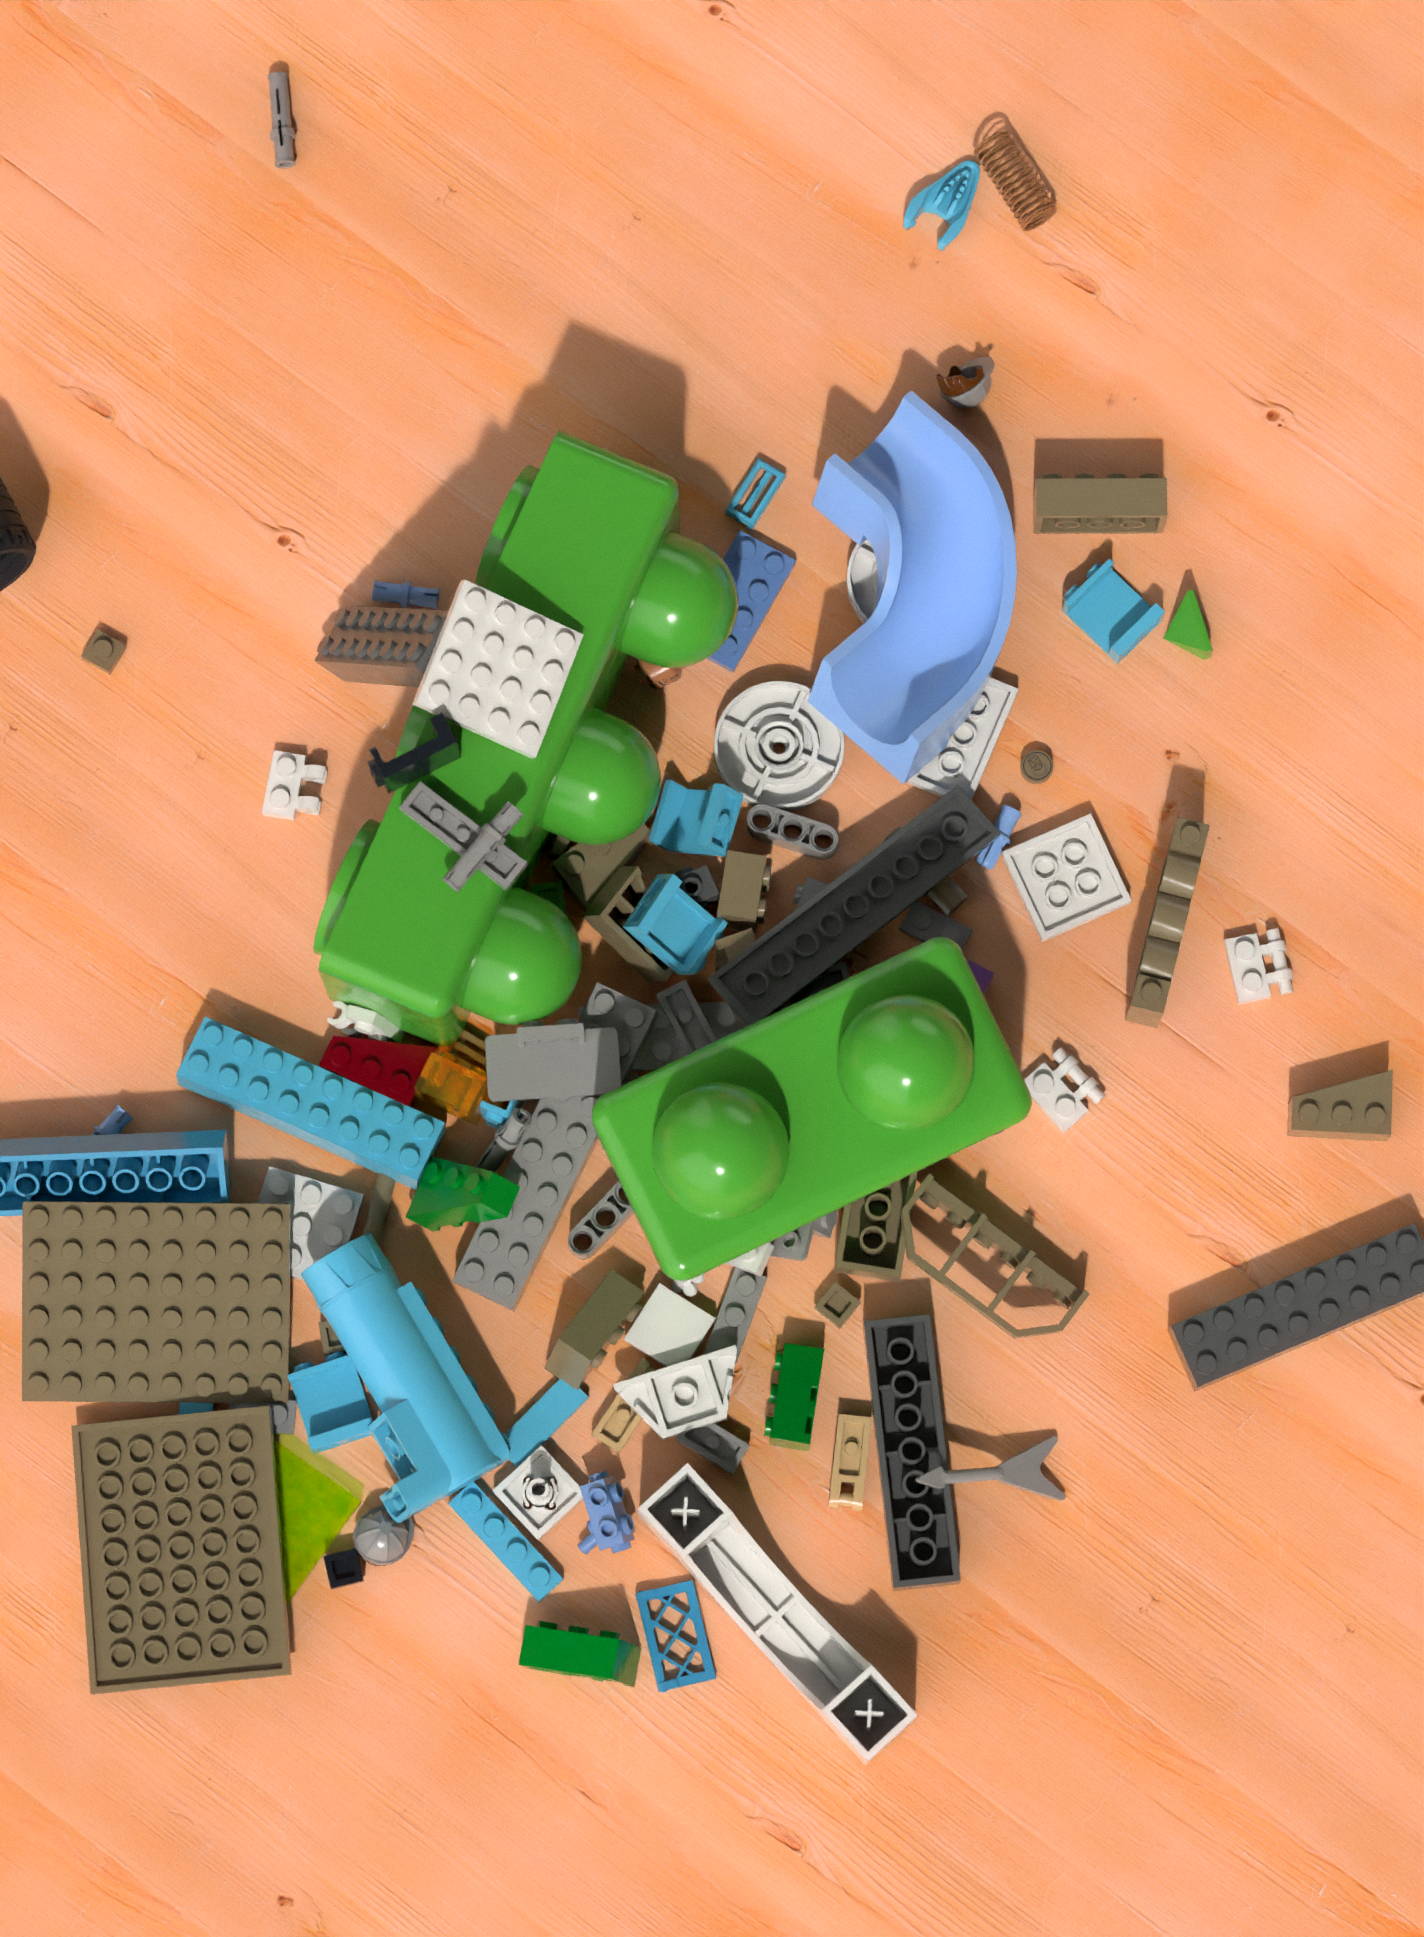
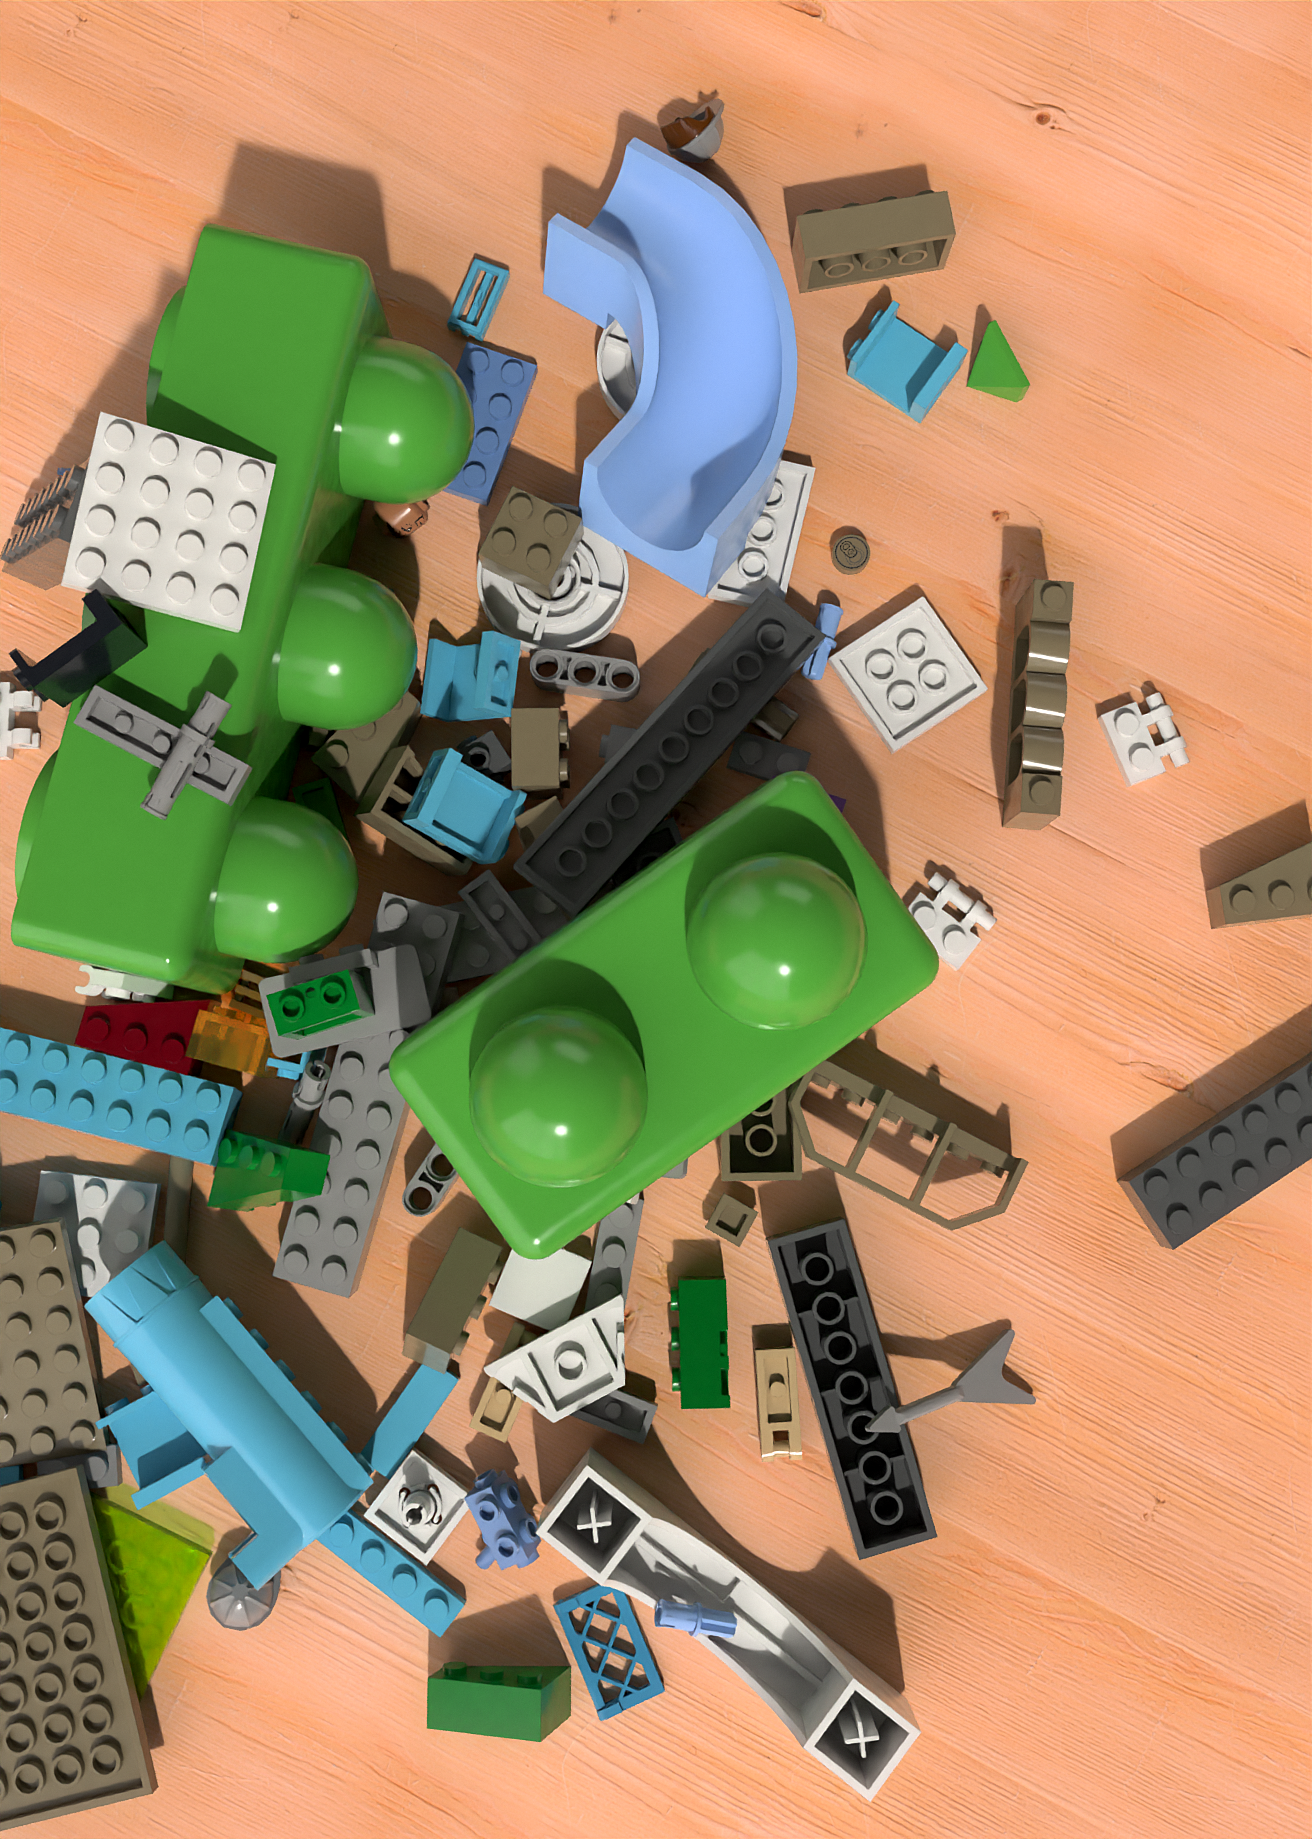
camera: 10 degrees left, 5 degrees up
(343, 1568) = (202, 1640): black plate -> none
(540, 1066) = (333, 1003): none -> green window
(751, 1615) = (694, 1619): none -> light blue axle
(766, 714) = (531, 542): none -> dark tan brick

